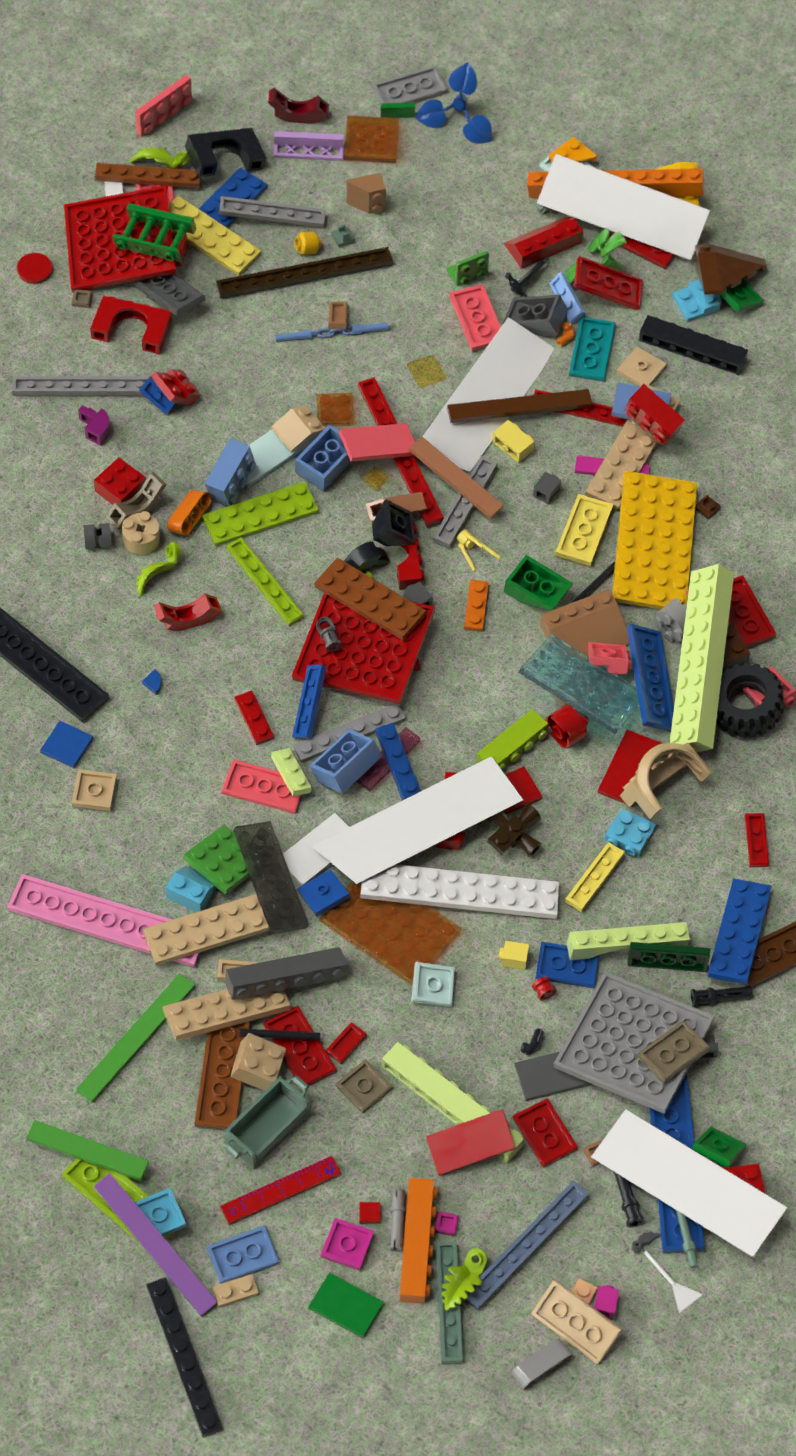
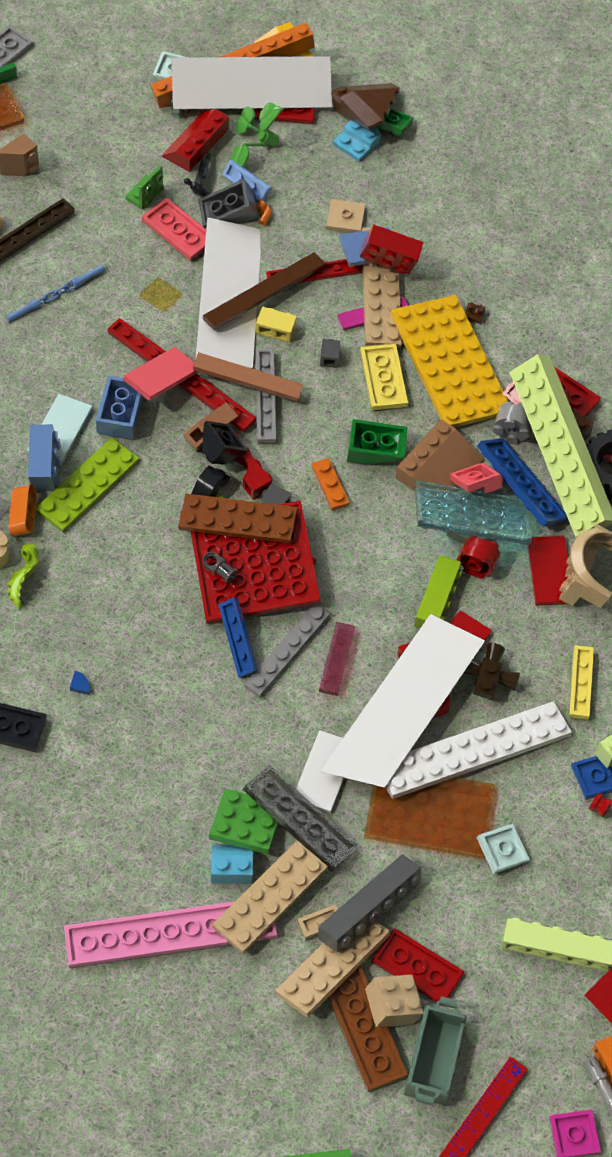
camera: 30 degrees left, 0 degrees up
(66, 744) = (32, 780): blue tile -> none
(94, 790) = (85, 812): tan plate -> none
(133, 1039) = (262, 1035): bright green tile -> none
(190, 615) = (80, 605): red arch -> none
(254, 717) = (192, 675): red plate -> none
(259, 786) = (239, 735): coral tile -> none
(265, 581) = (128, 544): lime tile -> none
(280, 1034) = (396, 964): black bar -> none
(291, 772) = (258, 710): yellowish green plate -> none
(298, 428) = (80, 391): tan slope -> none
(323, 893) = (355, 810): blue plate -> none
(335, 409) = (99, 361): clear orange plate -> none
(338, 315) = (53, 276): medium nougat tile -> none
(343, 236) = (15, 204): sand green tile -> none
(345, 761) = (304, 677): medium blue brick -> none
(346, 1043) = (457, 942): red tile -> none
(364, 1086) = (497, 975): dark tan tile -> none
(369, 1212) = (575, 1093): red tile -> none
(375, 478) = (172, 408): clear yellow tile -> none
(397, 760) = (349, 656): blue plate -> none
(464, 81) = (53, 25): blue plant -> none
(467, 540) = (289, 429): light yellow plant -> none
(514, 955) = (557, 786): light yellow brick -> none
(574, 150) = (176, 50): light orange wing -> none
(592, 349) = (293, 217): teal tile -> none
(596, 583) = (420, 422): black bar -> none
(608, 283) = (276, 153): red tile -> none
(630, 832) = (586, 628): medium azure plate -> none
(693, 345) = (378, 178): black brick -> none

